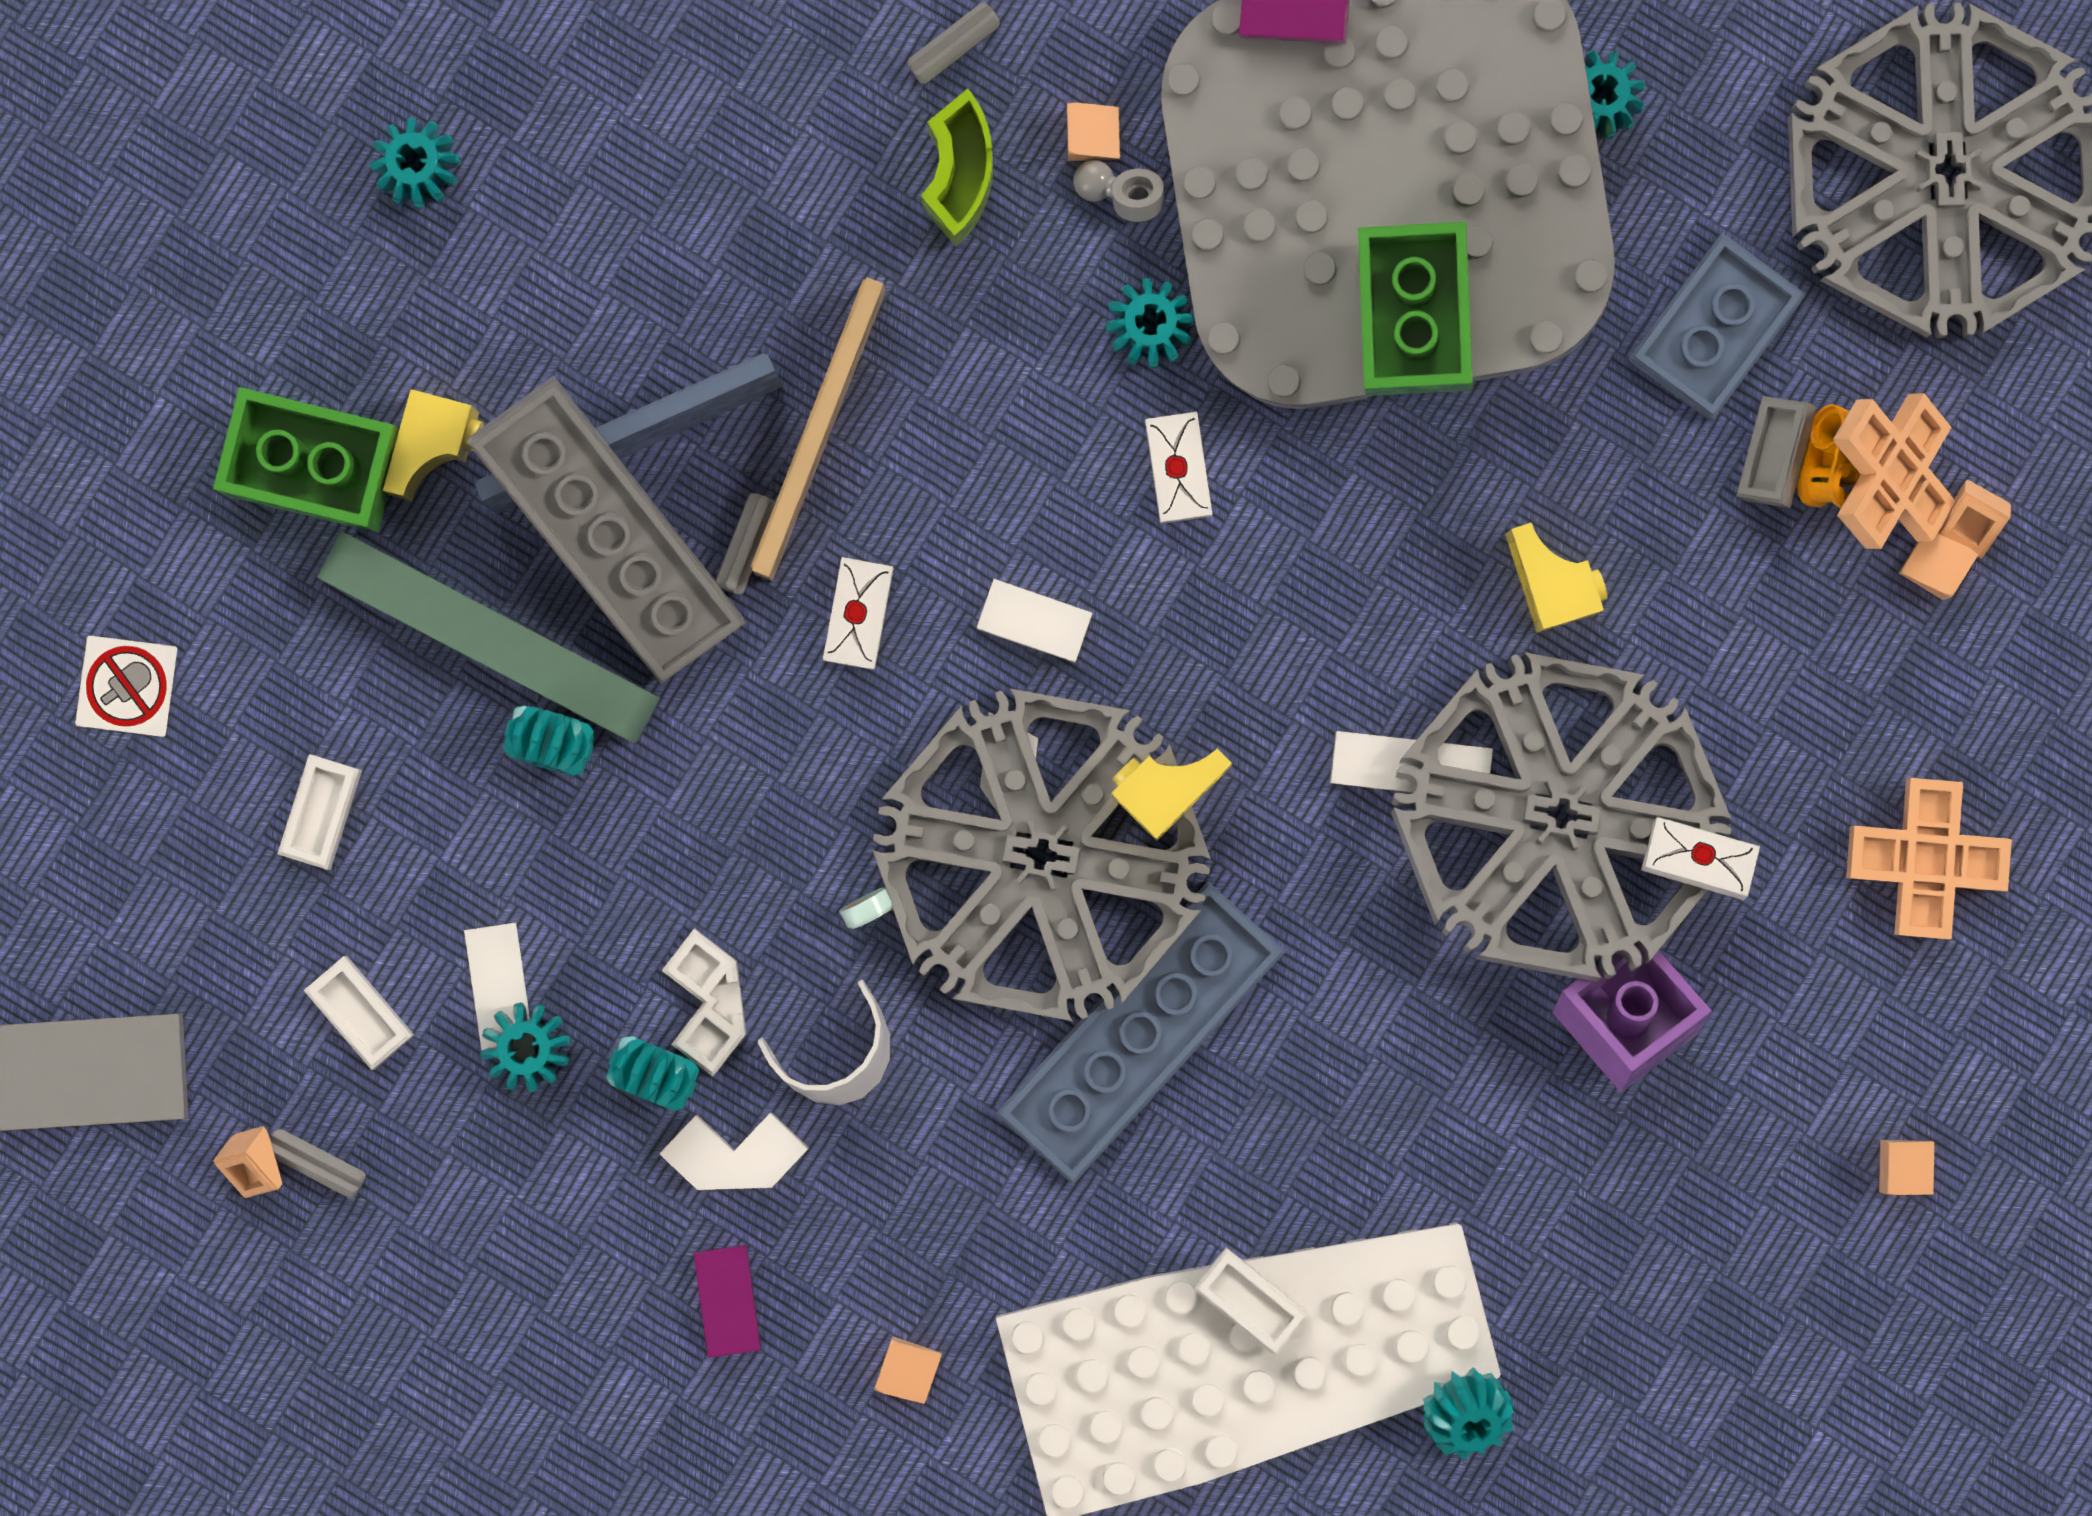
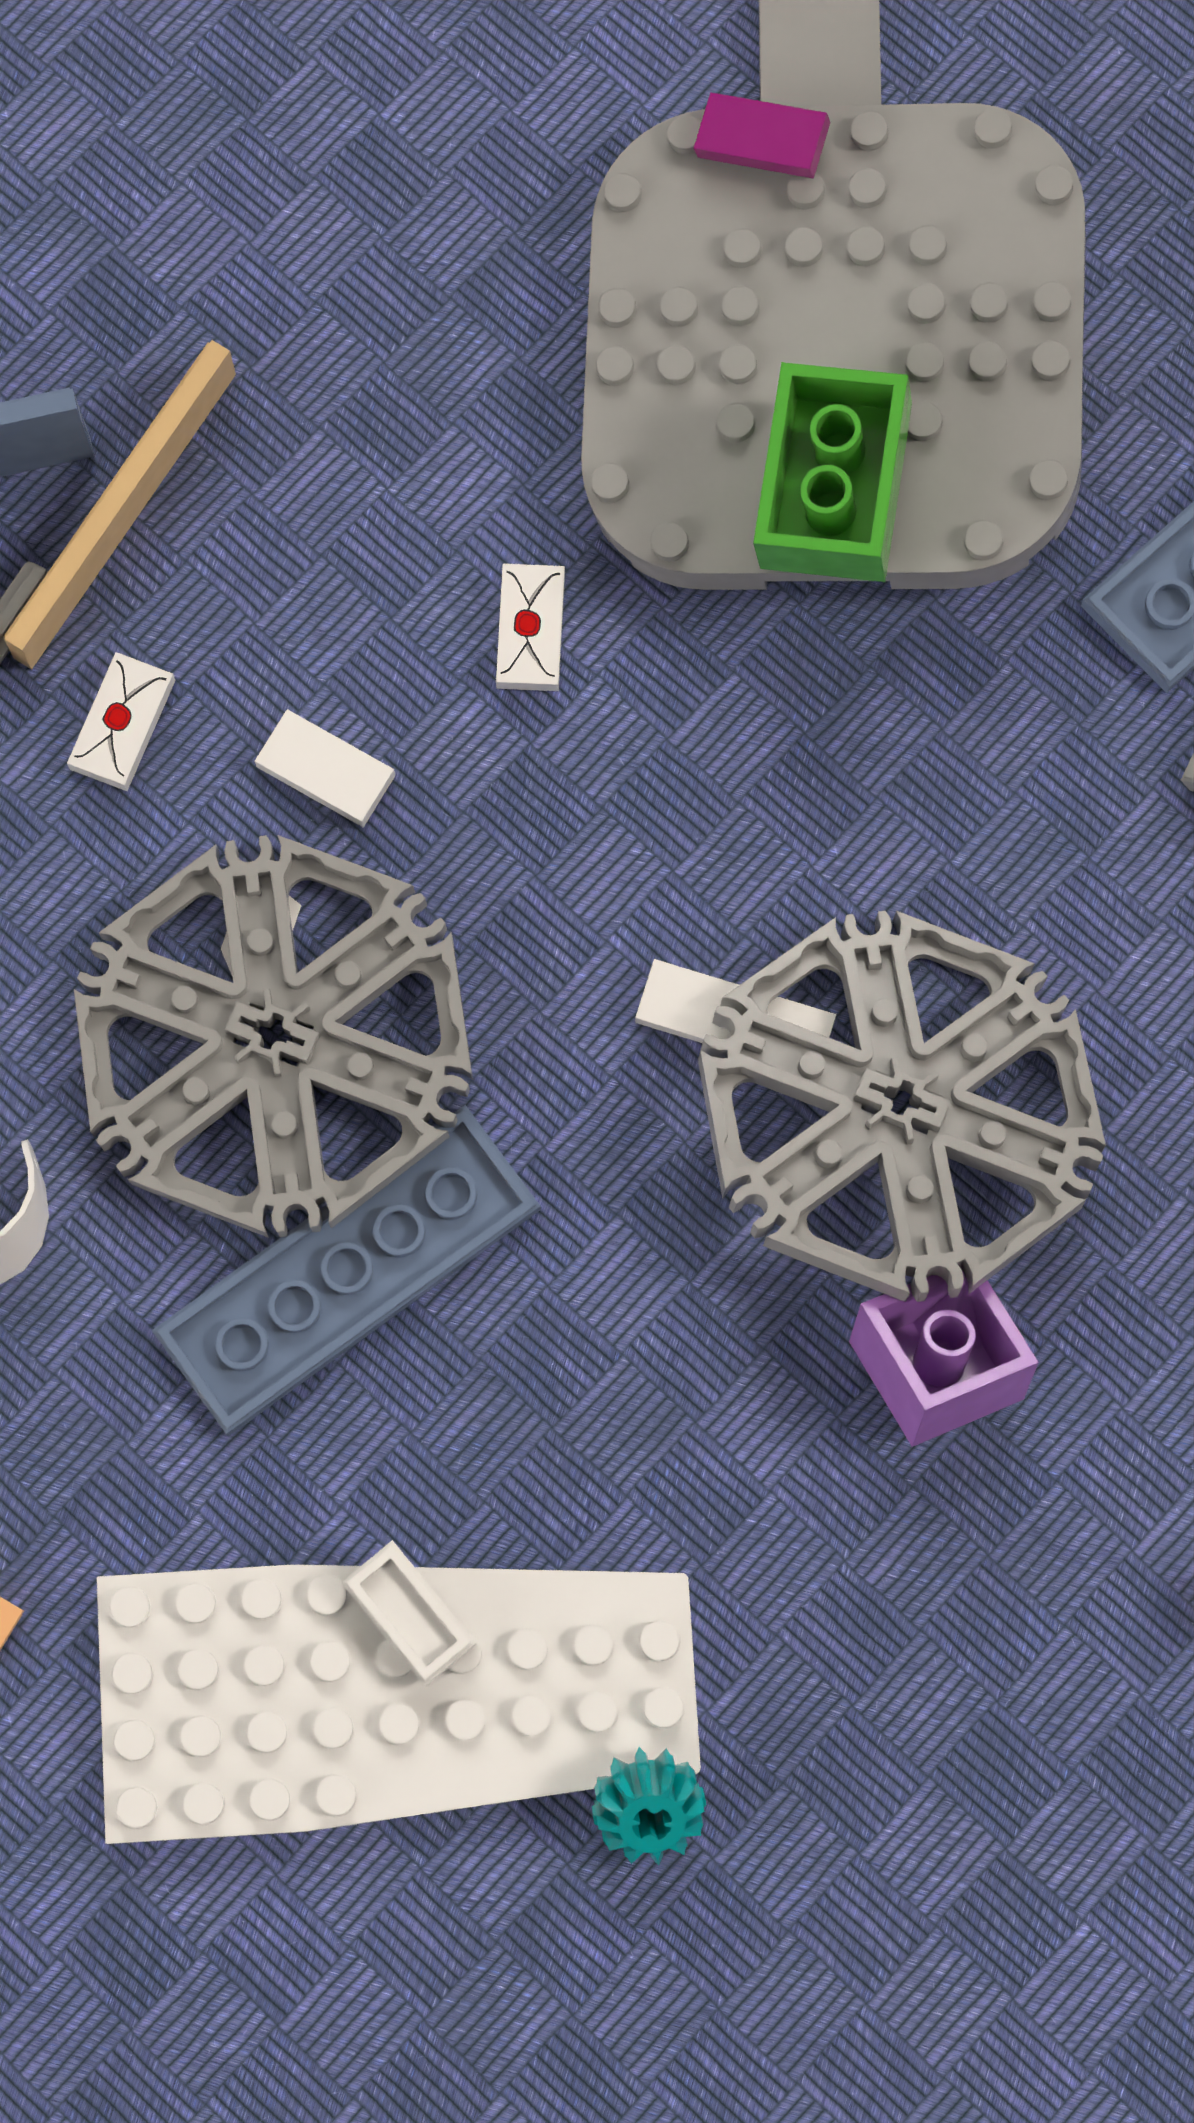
camera: 15 degrees right, 10 degrees down
(866, 908) = (51, 1057): light aqua tile -> none
(953, 42) = (372, 117): light grey axle -> none
(964, 167) = (351, 246): lime brick -> none
(1092, 132) = (508, 240): light nougat slope -> none
(1134, 314) = (550, 467): teal gear -> none
(1135, 193) = (541, 313): light grey plate -> none
(1162, 793) = (433, 980): light yellow arch -> none
(1552, 586) = (947, 842): light yellow arch -> none
(1622, 91) = (1126, 294): teal gear -> none
(1700, 858) = (1058, 1178): white tile -> none

